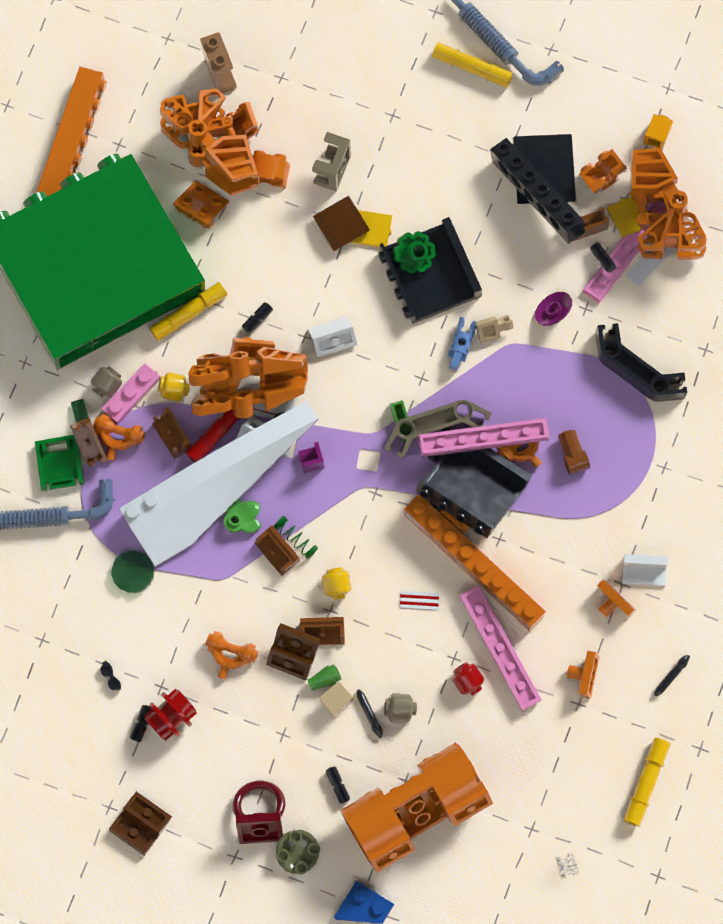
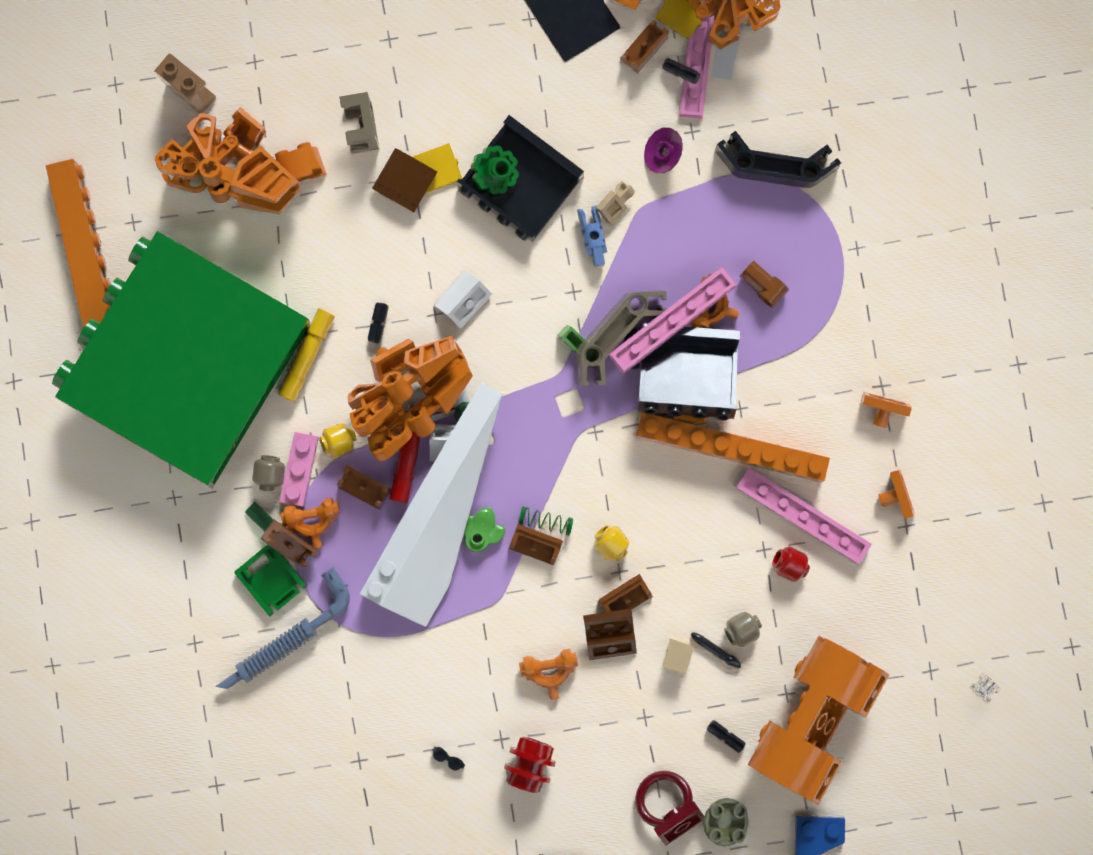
camera: 30 degrees left, 10 degrees up
(132, 572) = (407, 644): clear green tile -> none
(140, 727) = (505, 790): black piece -> none
(200, 203) = (253, 238): orange hinge -> none
(311, 458) = (515, 434): magenta panel -> none
(325, 677) = (655, 640): bright green cone -> none
(419, 600) = (698, 512): sticker -> none
(537, 191) = (581, 39): black brick -> none
(644, 570) = (896, 361): white panel -> none
(647, 782) = (1013, 565): yellow piece -> none
(670, 677) = (978, 448): black piece -> none

